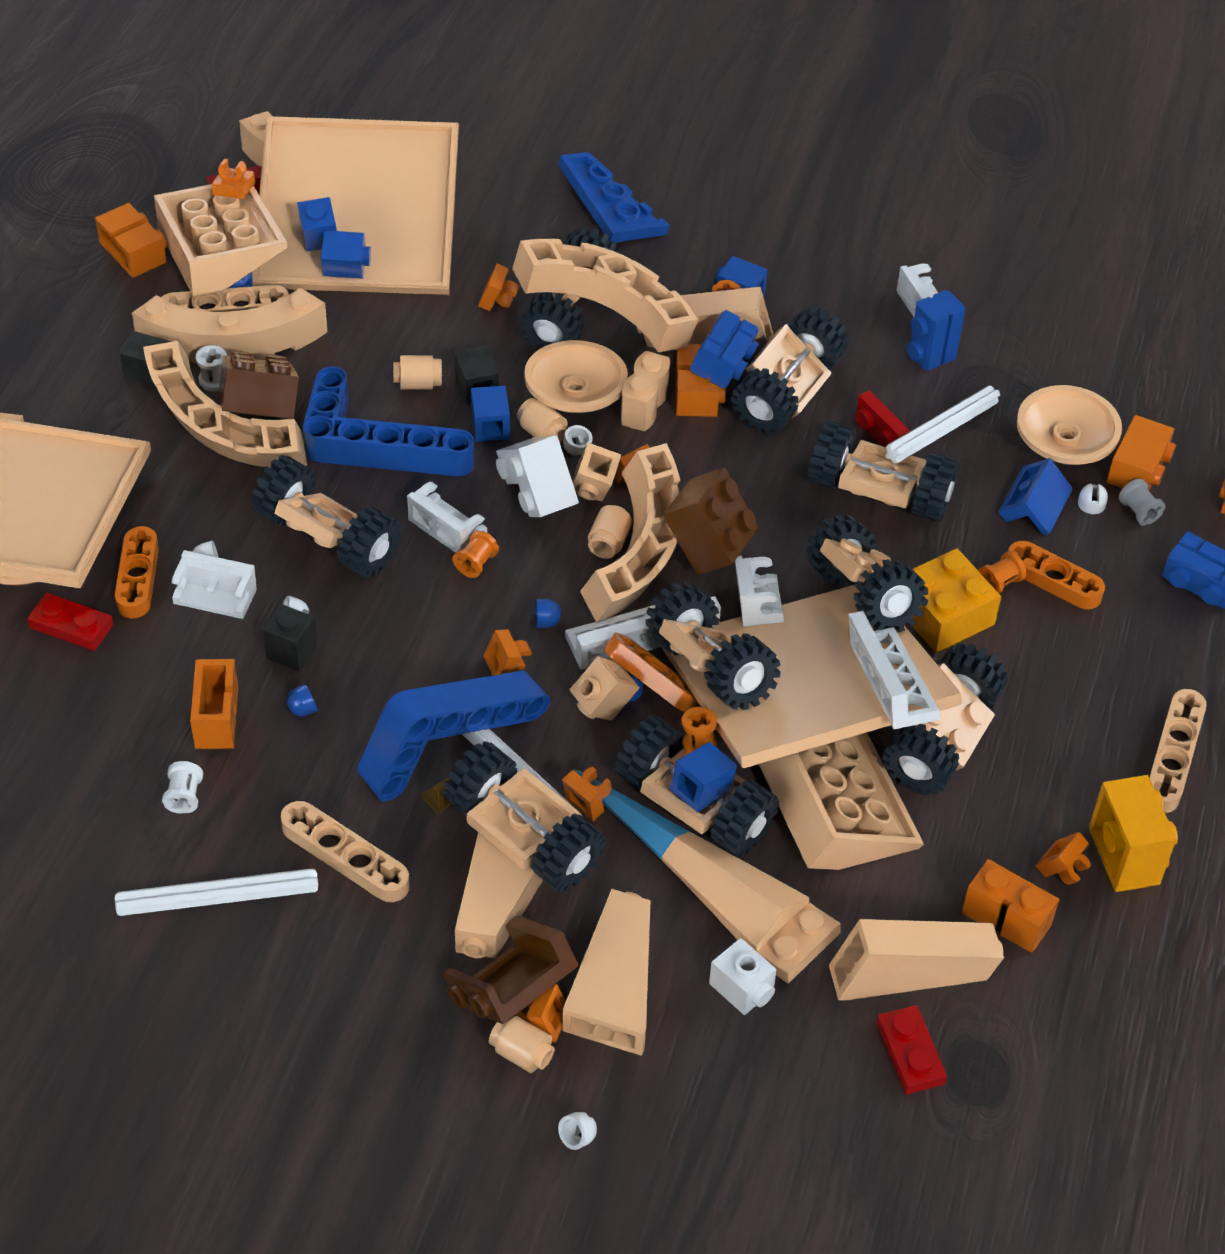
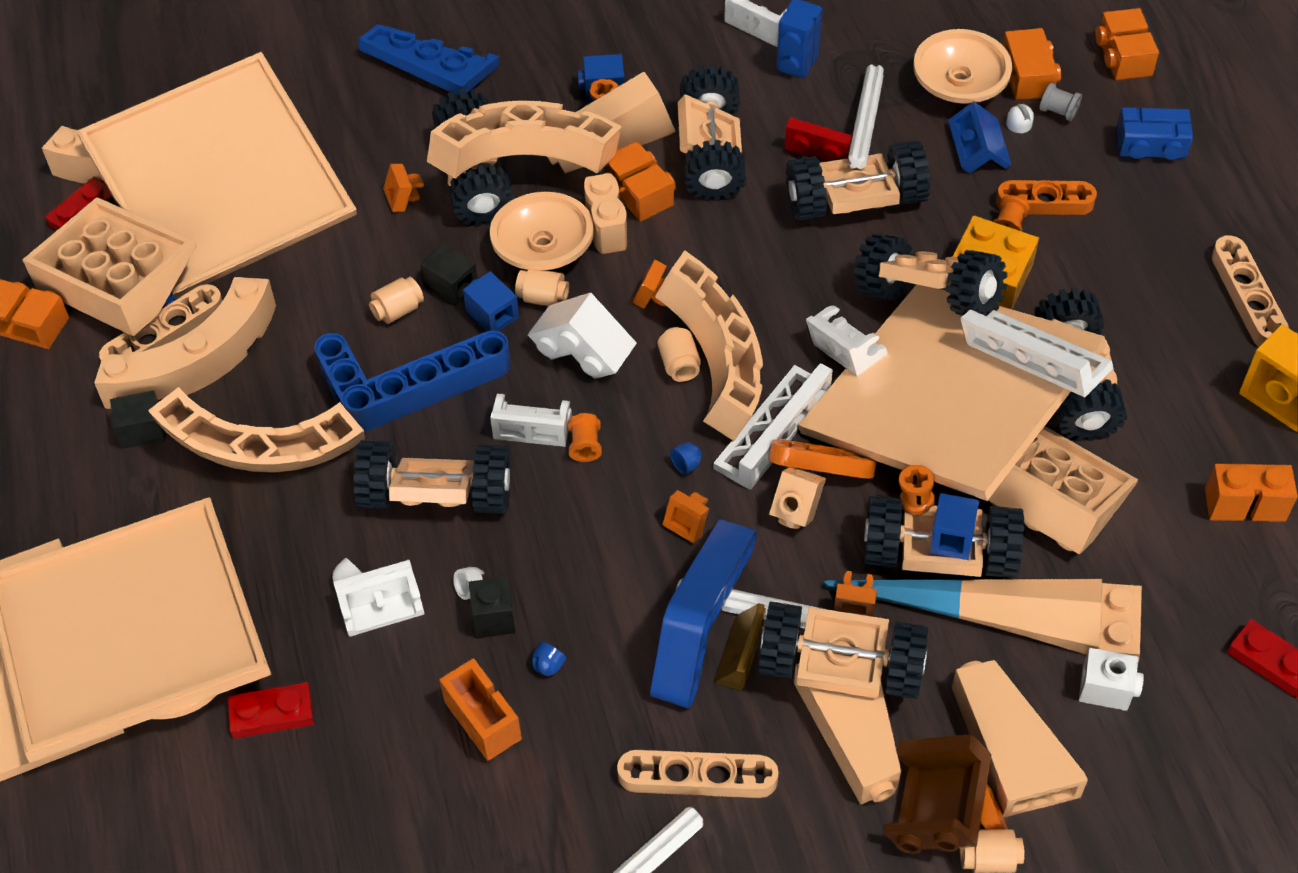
camera: 30 degrees left, 5 degrees up
(144, 583) = (294, 642): orange beam -> none
(182, 787) = (511, 804): white bush -> none
(210, 368) = (211, 388): white bush -> none
(233, 182) = (91, 208): orange tile -> none
(258, 385) = (279, 389): reddish brown brick -> none
(315, 218) = (202, 208): blue brick -> none
(344, 254) = (246, 224): blue brick -> none
(582, 437) = (583, 284): white hinge -> none
(595, 472) = (631, 306): light nougat brick -> none
(711, 521) = (768, 298): reddish brown brick -> none
(724, 350) = (654, 142): blue brick -> none
(734, 666) = (825, 406): black plate -> none
(913, 956) = (1219, 582): light nougat slope -> none
(1062, 857) = (1250, 428): orange tile -> none

